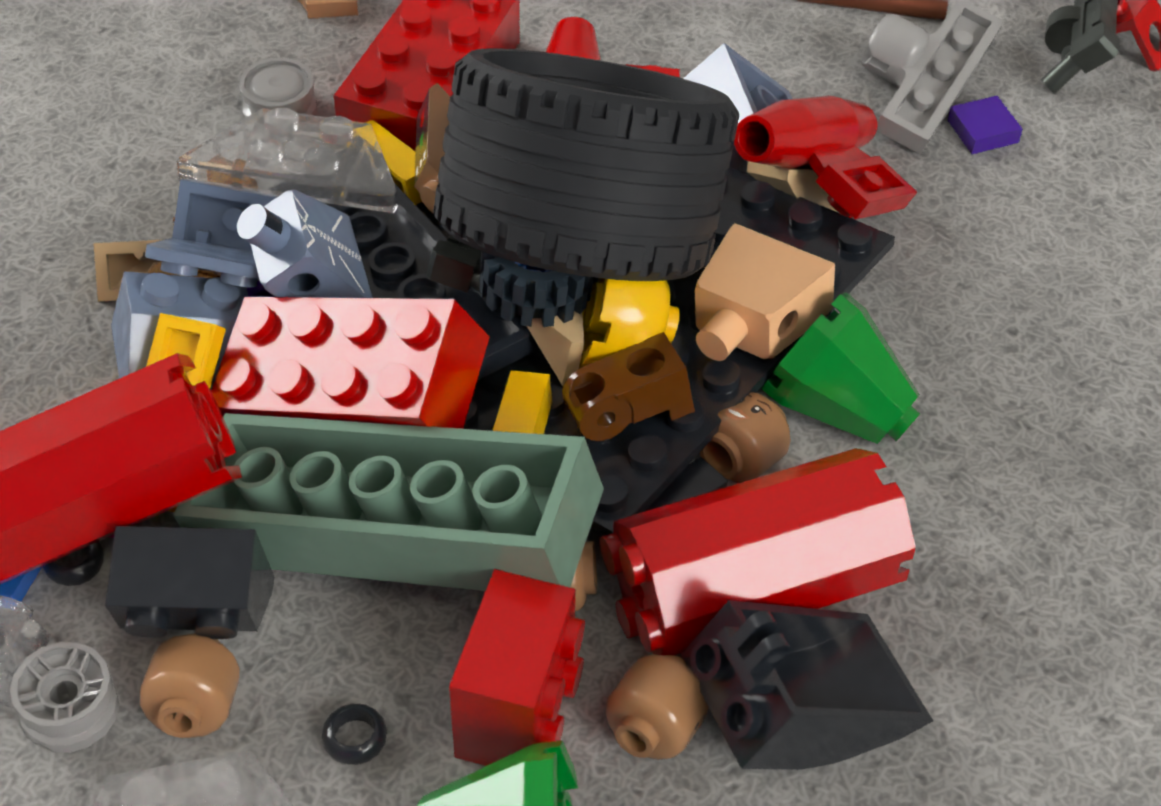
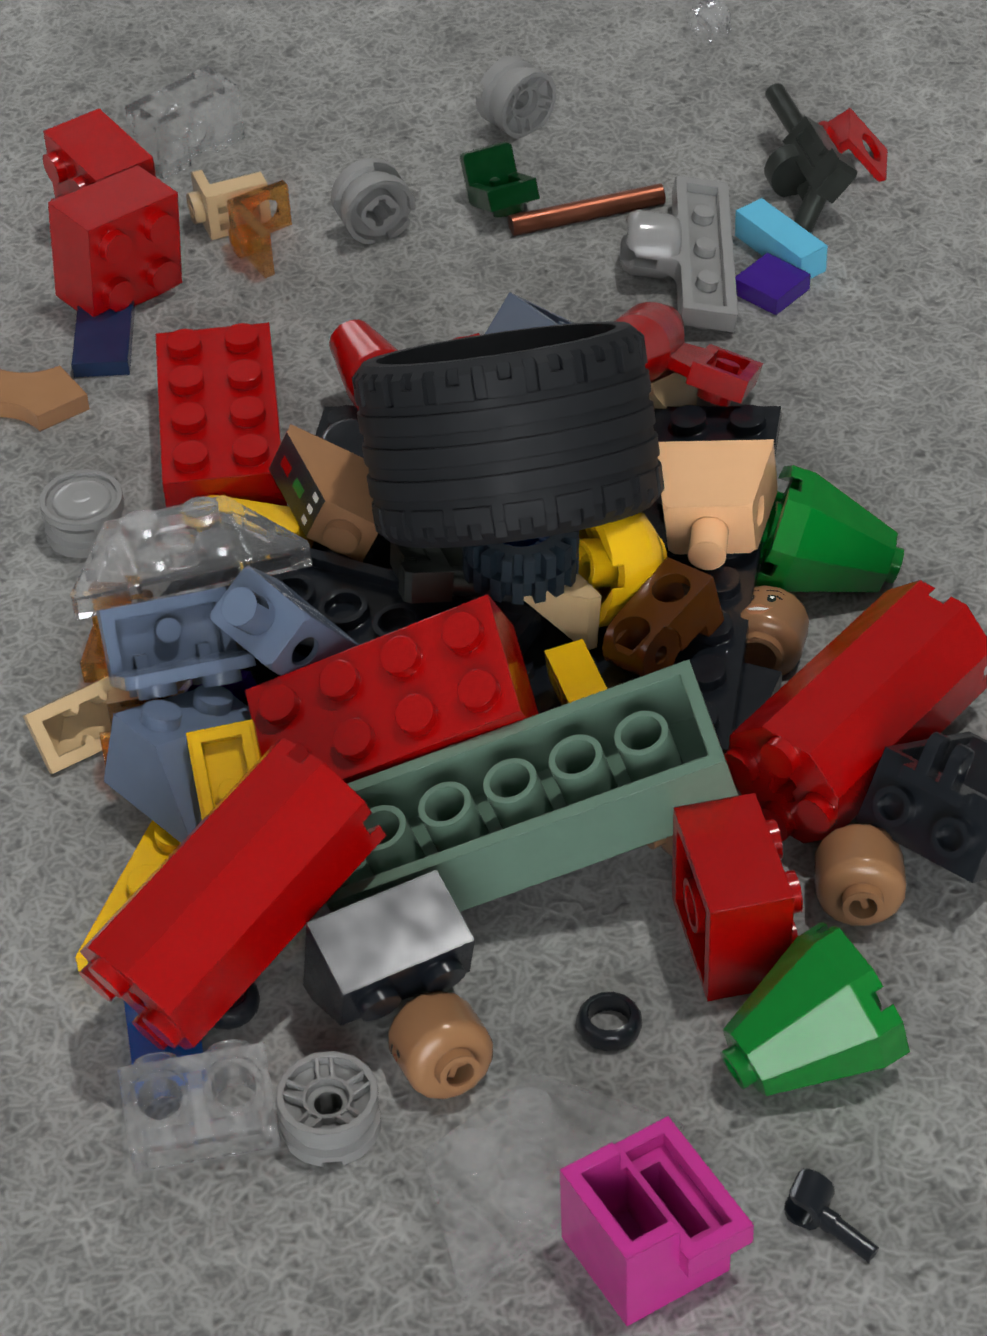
camera: 25 degrees left, 5 degrees down
(1019, 87) = (774, 233): none -> medium azure piece

